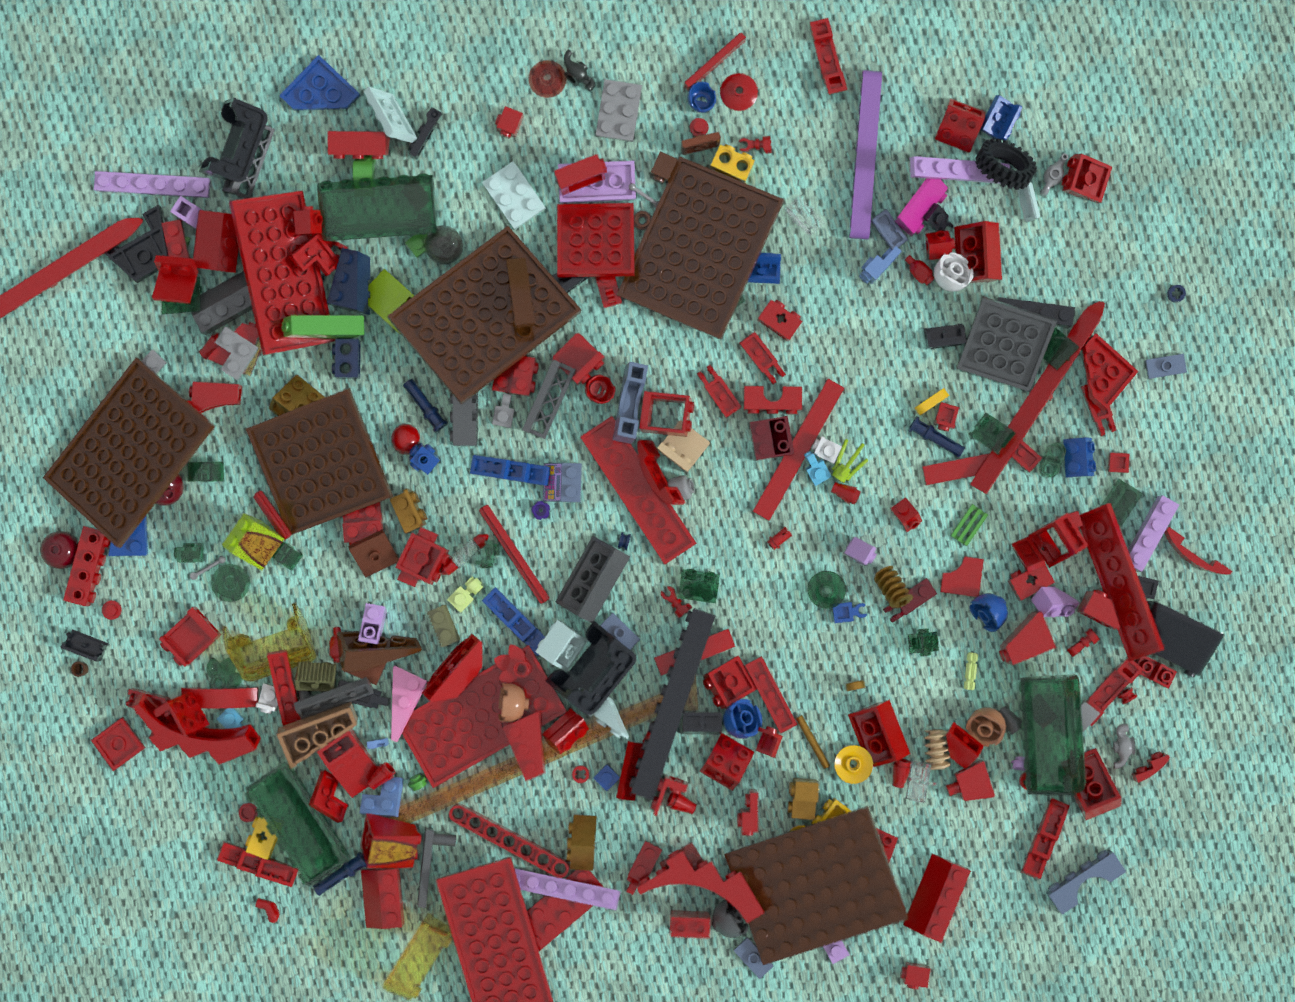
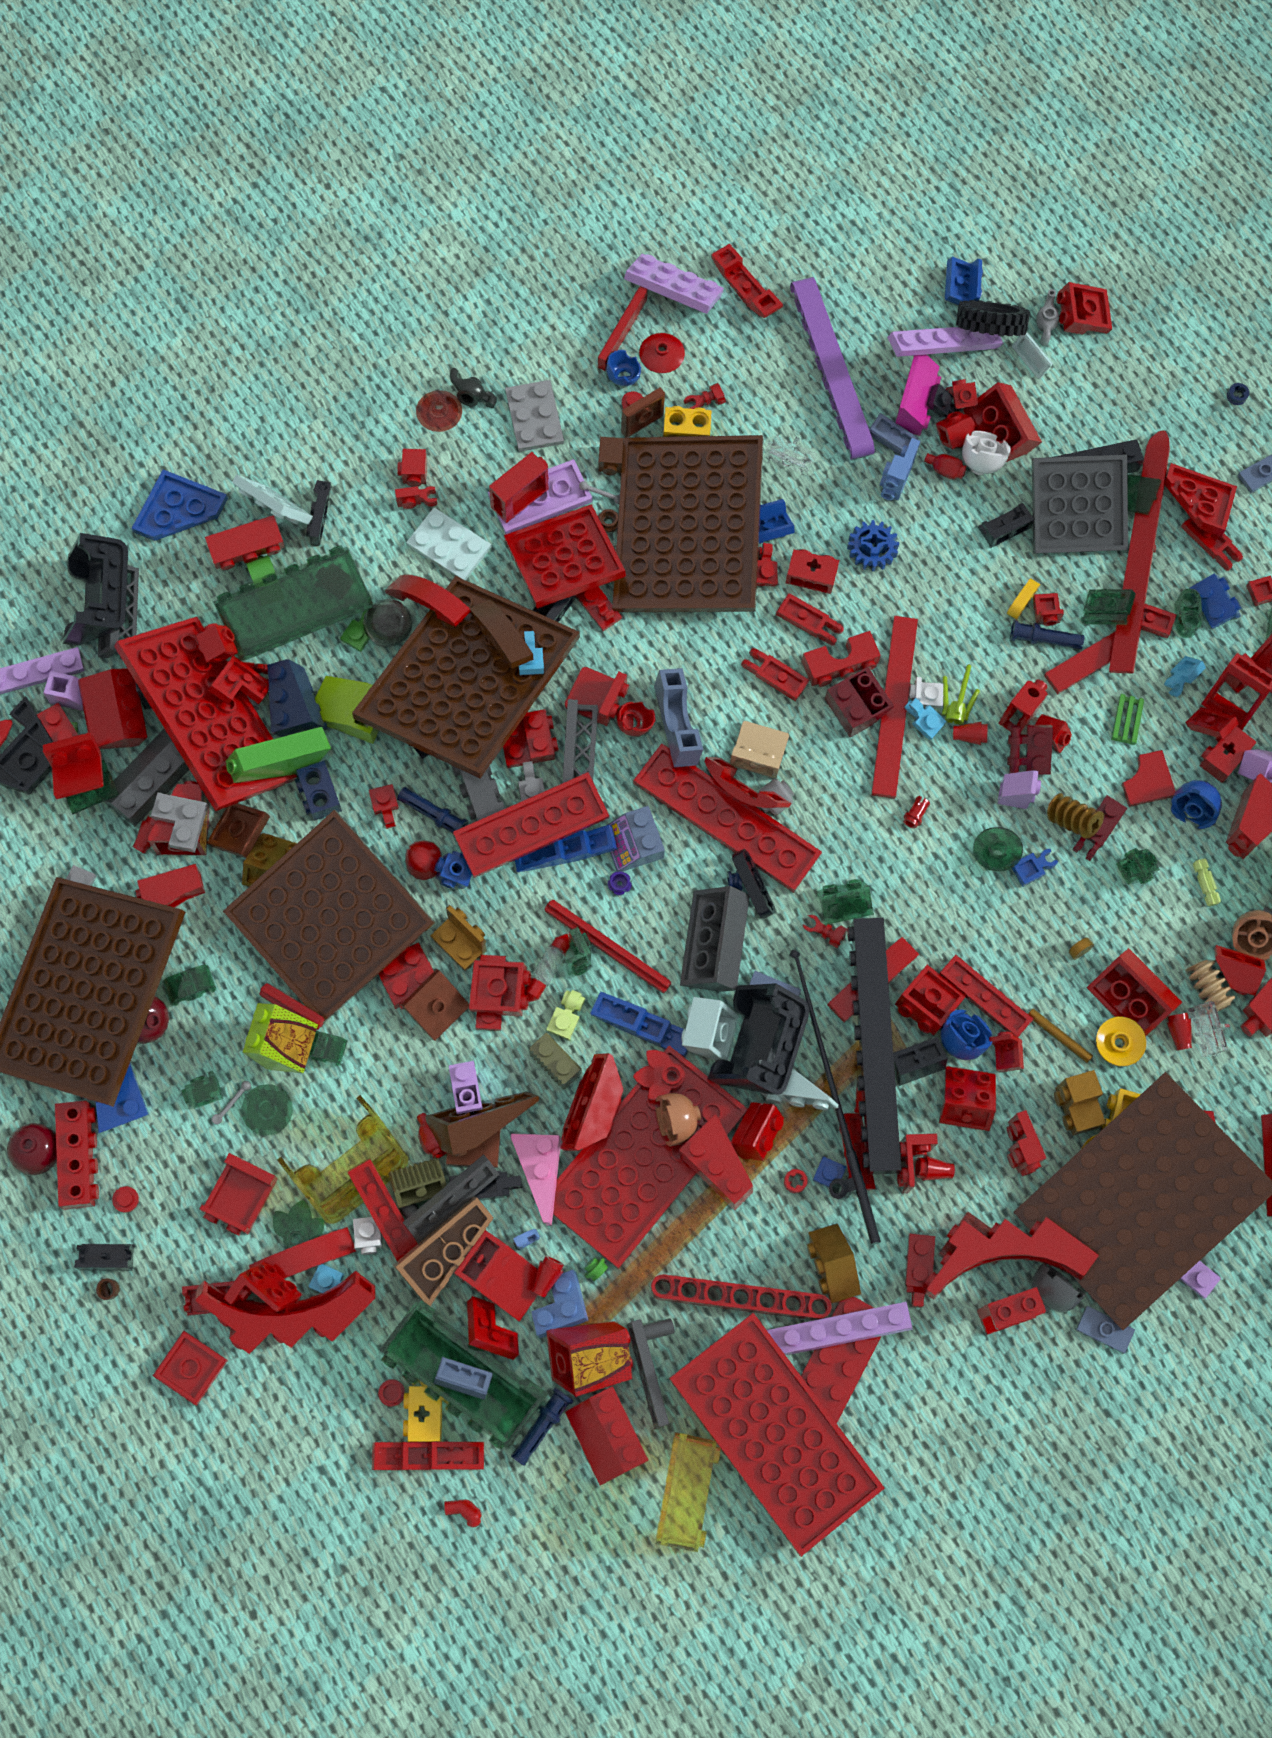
camera: 30 degrees left, 15 degrees down
(278, 369) = (238, 829): none -> copper plate
(297, 825) = (463, 1378): none -> sand blue plate
(392, 383) = (384, 802): none -> red plate
(480, 238) = (431, 595): none -> red slope
(489, 447) = (530, 825): none -> red plate
(497, 147) = (412, 496): none -> red plate
(538, 318) = (535, 666): none -> medium azure plate
(608, 793) = (856, 1183): none -> black piece
(636, 549) = (753, 883): none -> black beam
(647, 409) = (720, 699): red window -> none
(746, 305) = (767, 569): none -> red plate
(769, 38) = (674, 283): none -> lavender plate
(823, 312) = (863, 547): none -> blue gear
(889, 526) = (1038, 749): none -> dark red plate
(891, 489) = (1027, 701): none -> red torso
(957, 216) = (963, 394): none -> red bracket
(960, 125) = (923, 305): red bracket -> none
(1028, 505) = (1185, 671): none -> medium azure plate

